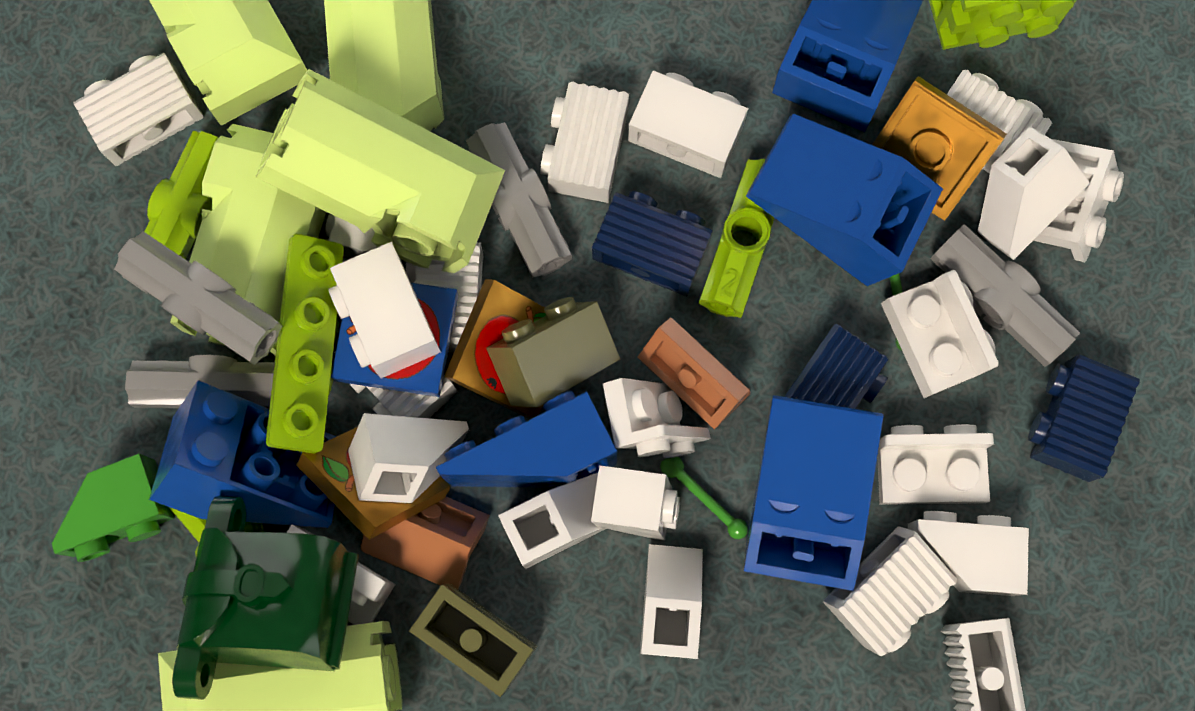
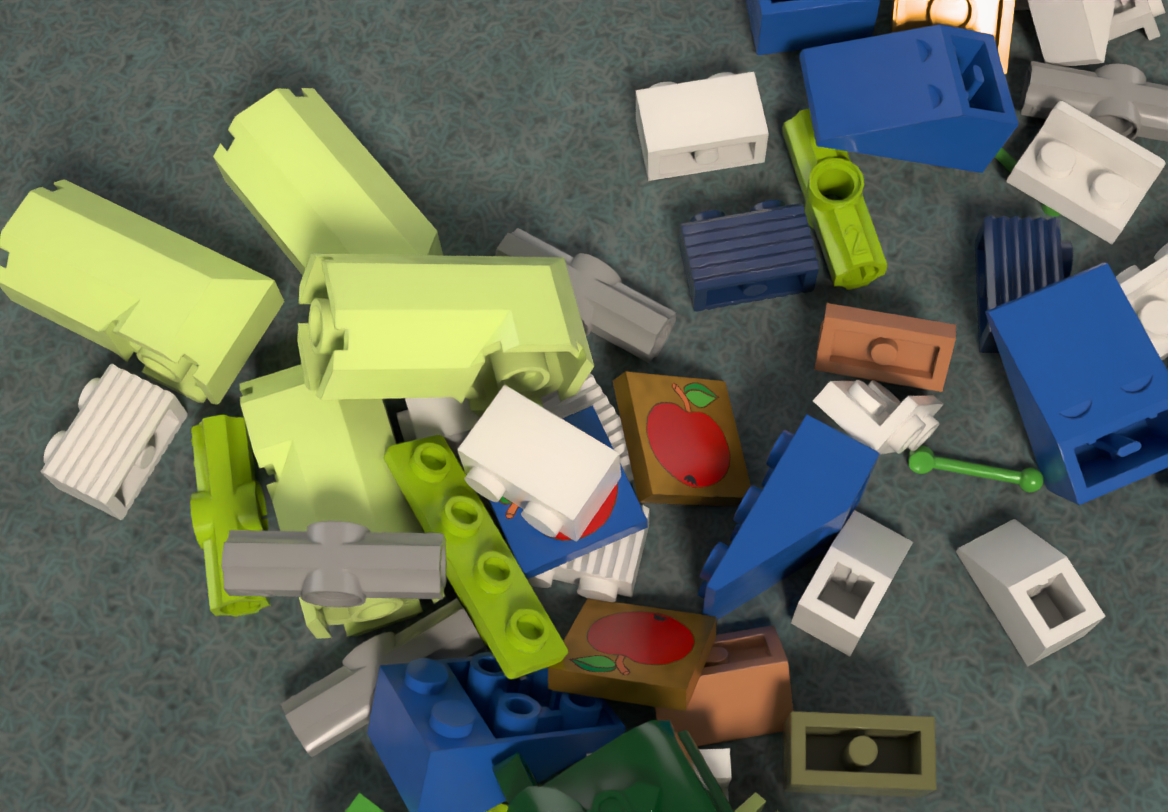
camera: 30 degrees left, 10 degrees down
(399, 455) = (648, 608): white slope -> none
(553, 352) = (731, 412): olive brick -> none
(587, 141) = (613, 199): white brick -> none
(635, 502) = (926, 502): white slope -> none

